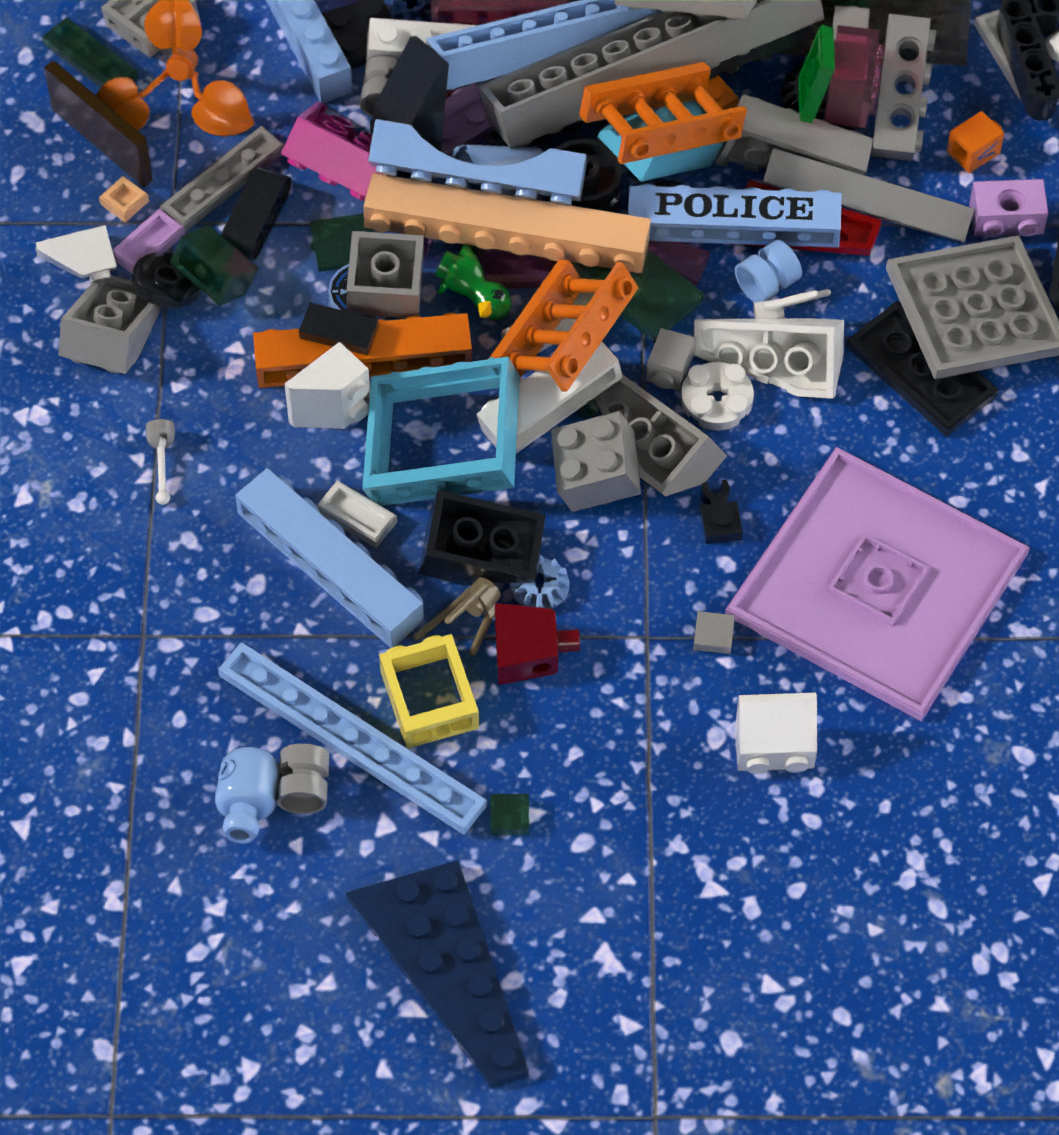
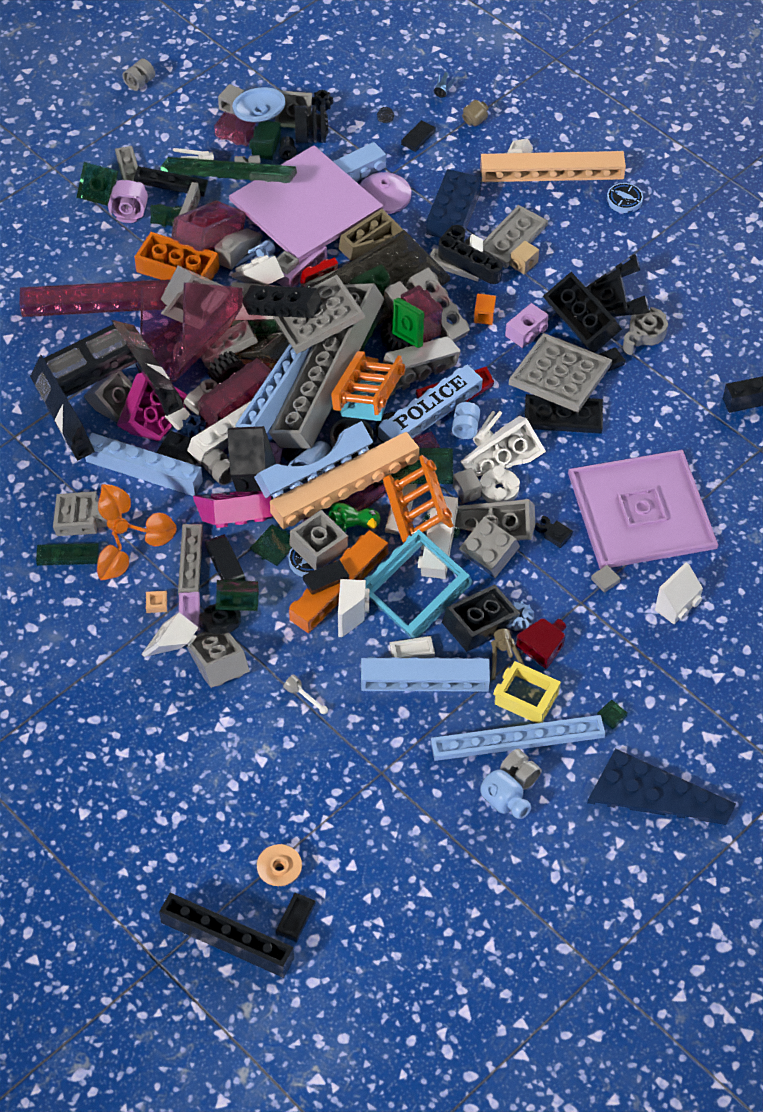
camera: 45 degrees left, 5 degrees down
(98, 123) = (114, 575): tile -> none
(871, 195) = (475, 358): light grey tile -> none

